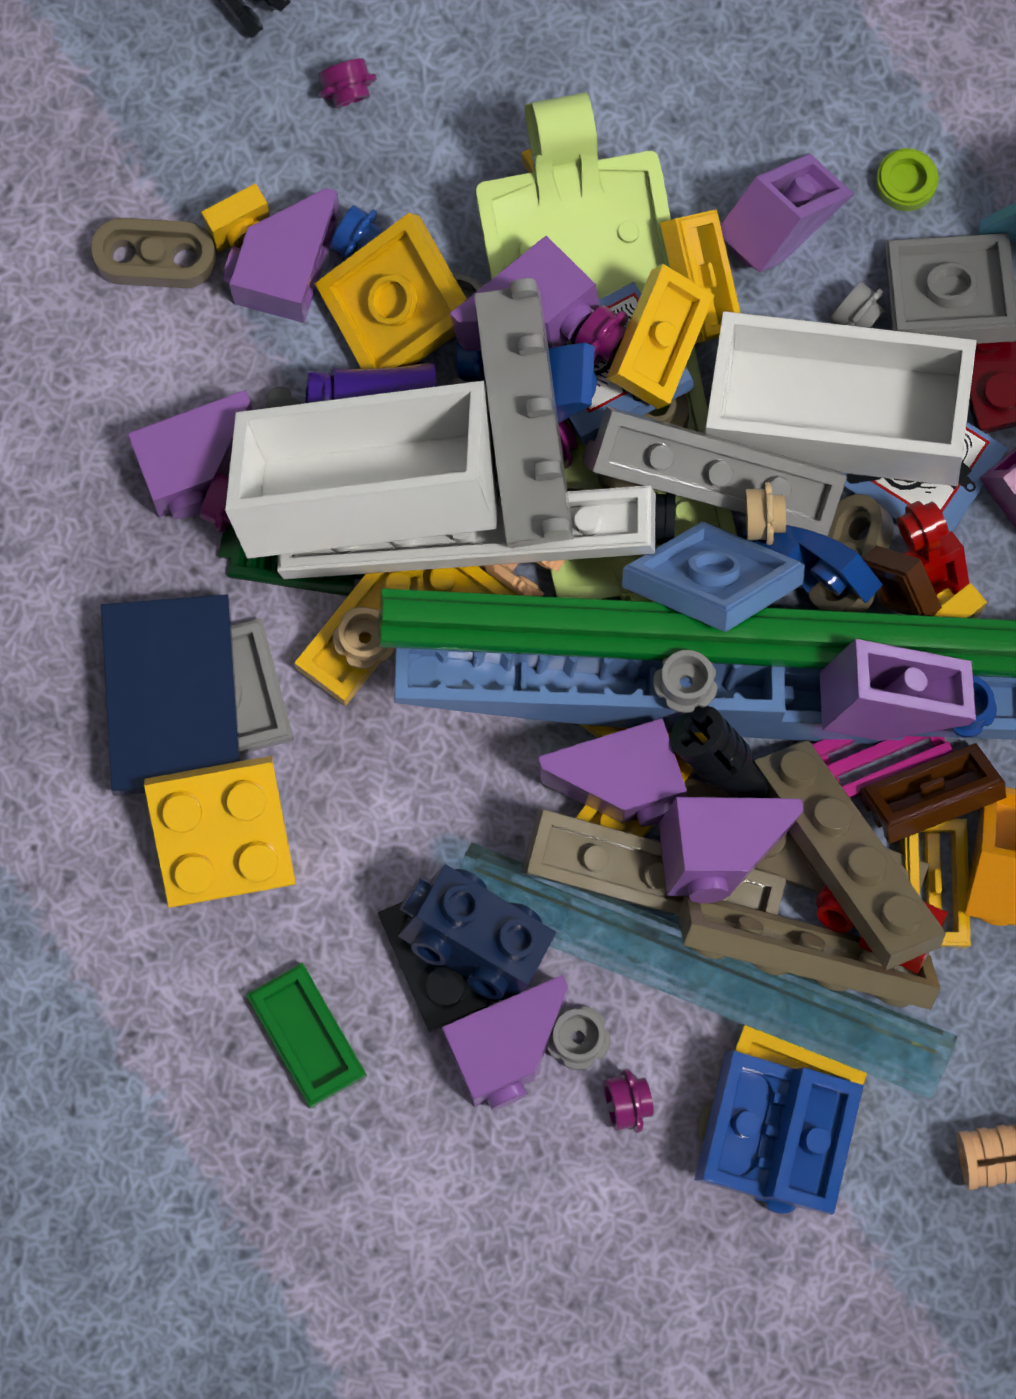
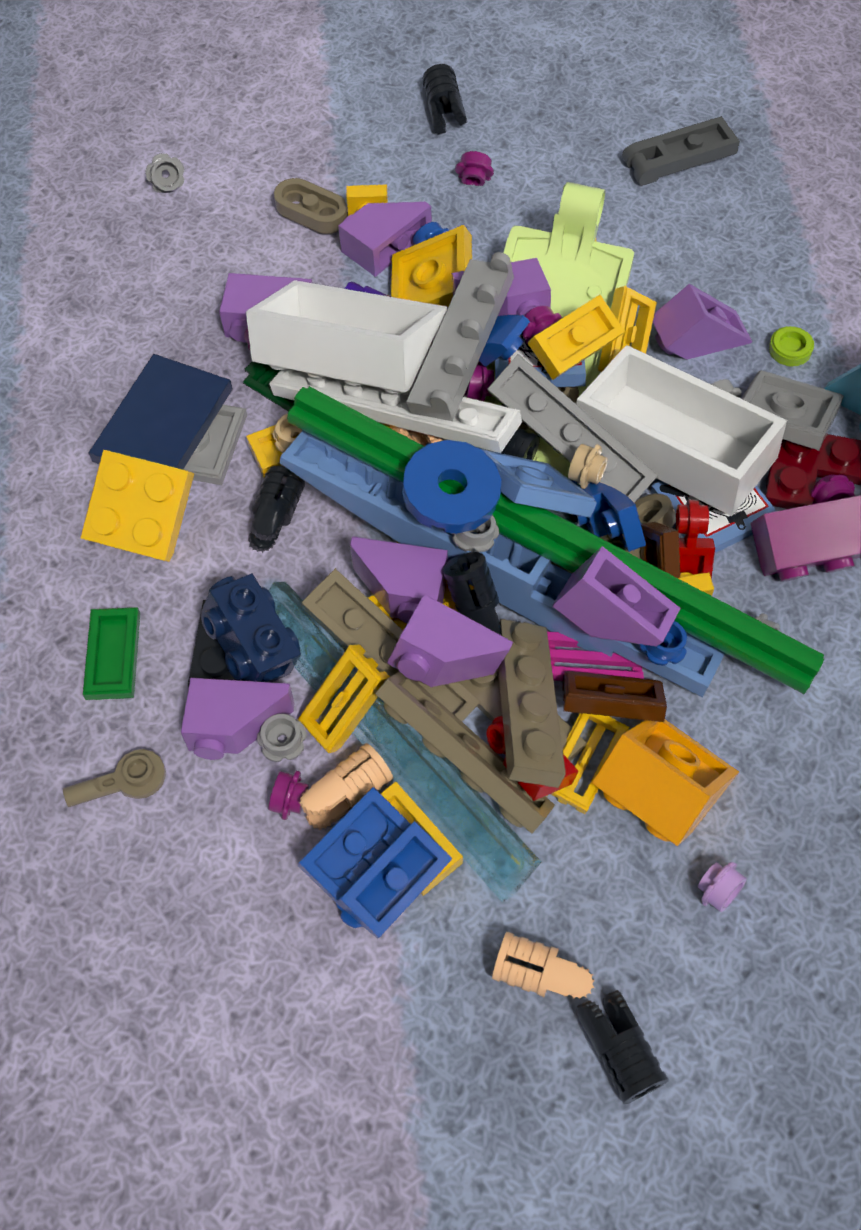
camera: 30 degrees right, 15 degrees down
(388, 746) = (273, 513): none -> black hinge
(438, 1169) = (136, 776): none -> dark tan plate
(647, 916) = (366, 671): none -> yellow tile
(665, 618) = (451, 462): none -> blue tile
(690, 1056) = (344, 786): none -> light nougat hinge

